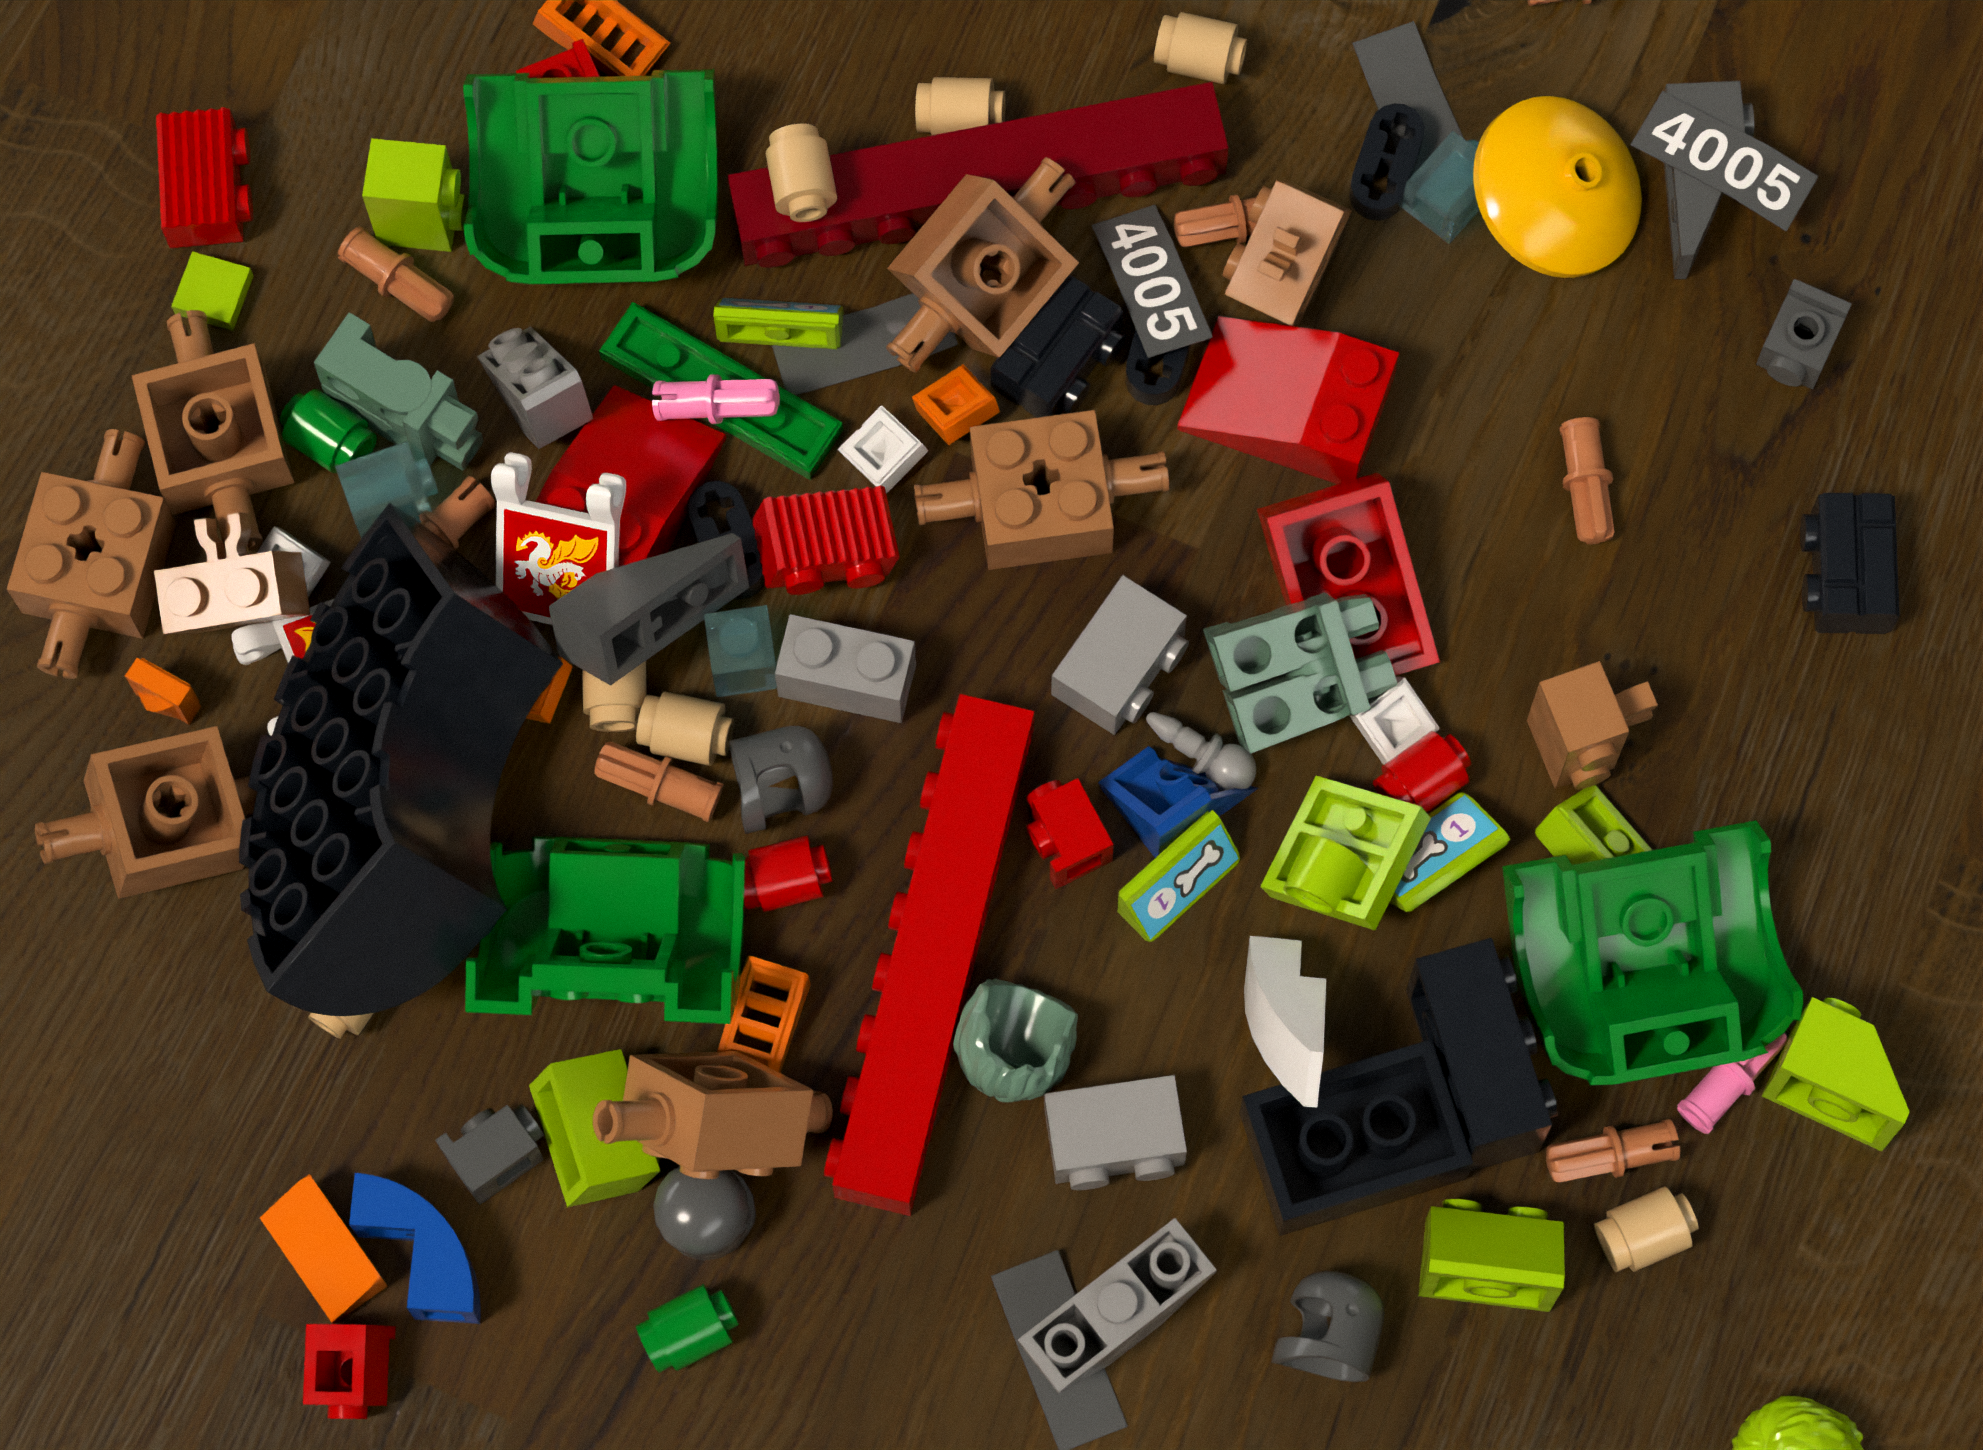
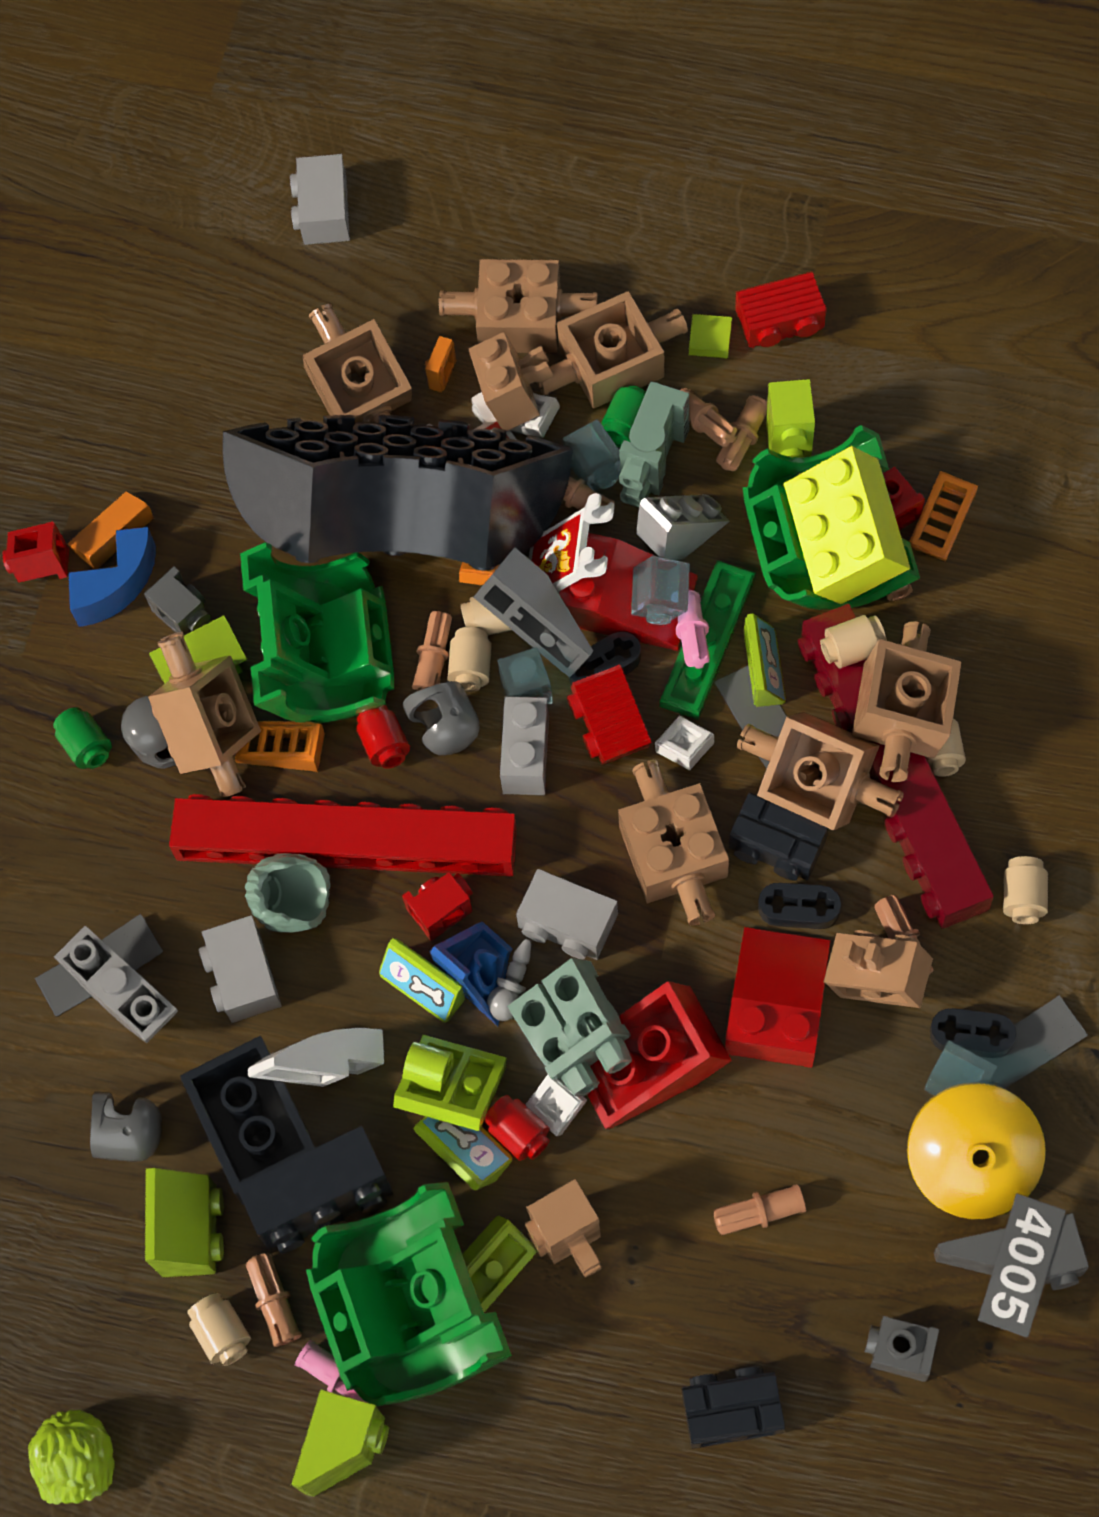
camera: 85 degrees right, 5 degrees down
(375, 308) = (706, 419): none -> nougat axle
(622, 139) = (846, 525): none -> neon yellow brick
(650, 425) = (660, 589): none -> clear light blue brick
(914, 117) = (906, 700): none -> medium nougat brick
(955, 404) = (726, 781): orange tile -> none
(1152, 281) = (842, 889): dark grey sticker -> none

